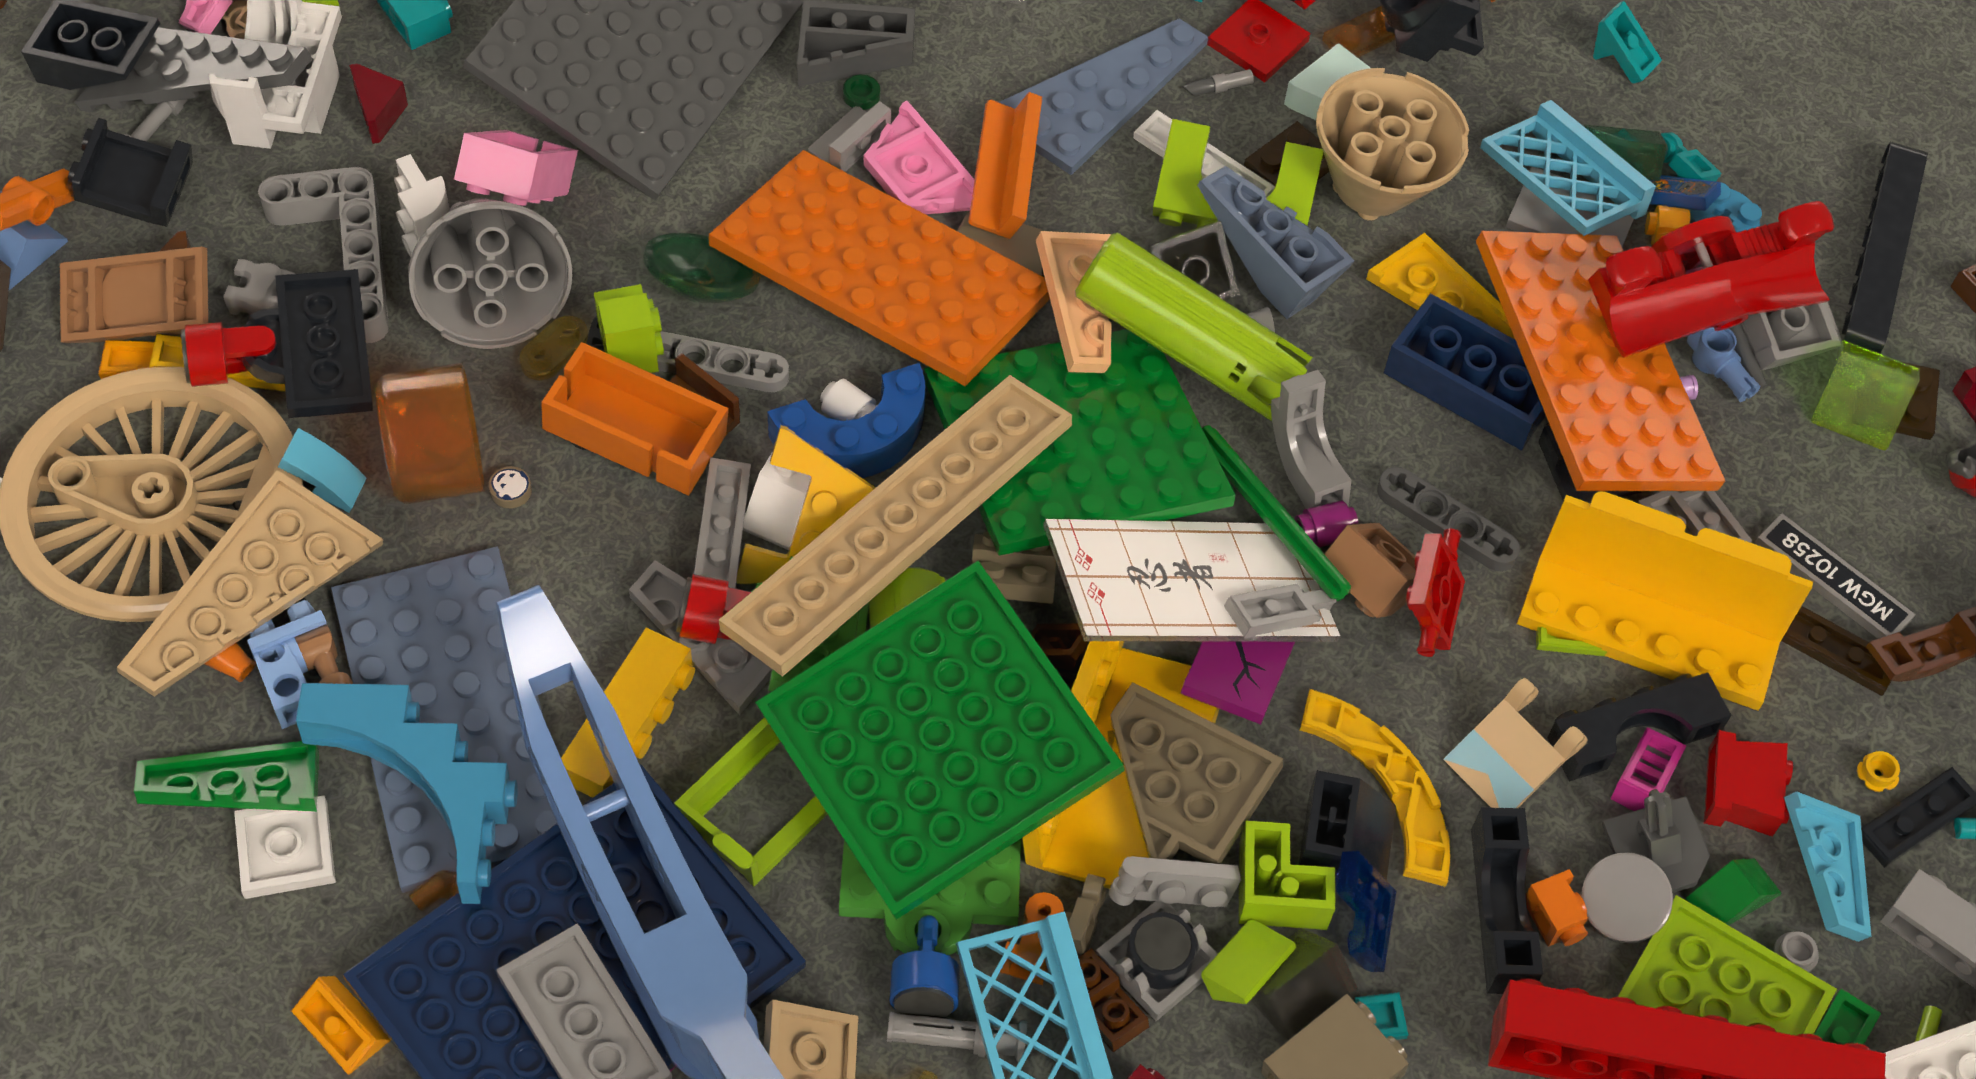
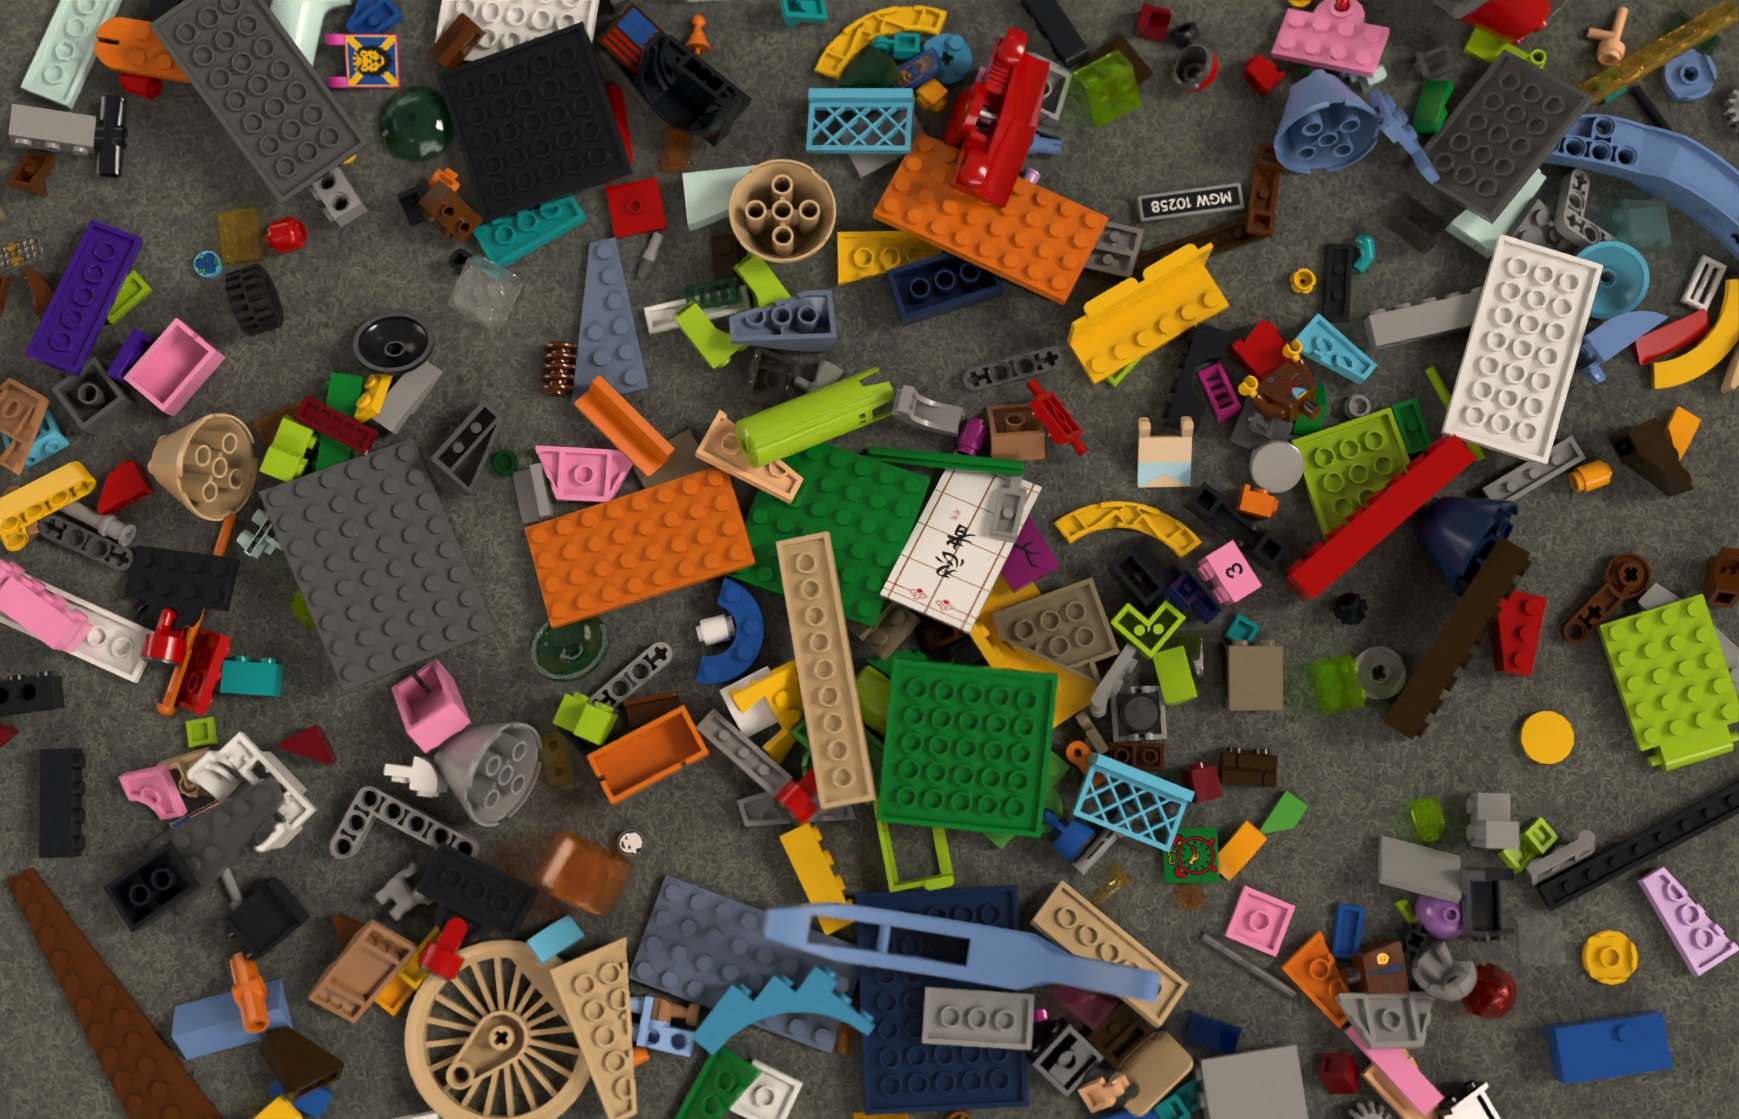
camera: 50 degrees left, 25 degrees up
(1012, 66) = (557, 369): none -> reddish brown piece
(1257, 169) = (734, 287): none -> clear green slope
(1436, 929) = (1228, 574): none -> bright pink brick
(1725, 823) = (1286, 391): none -> reddish brown torso
(1737, 168) = (881, 22): none -> yellow tile

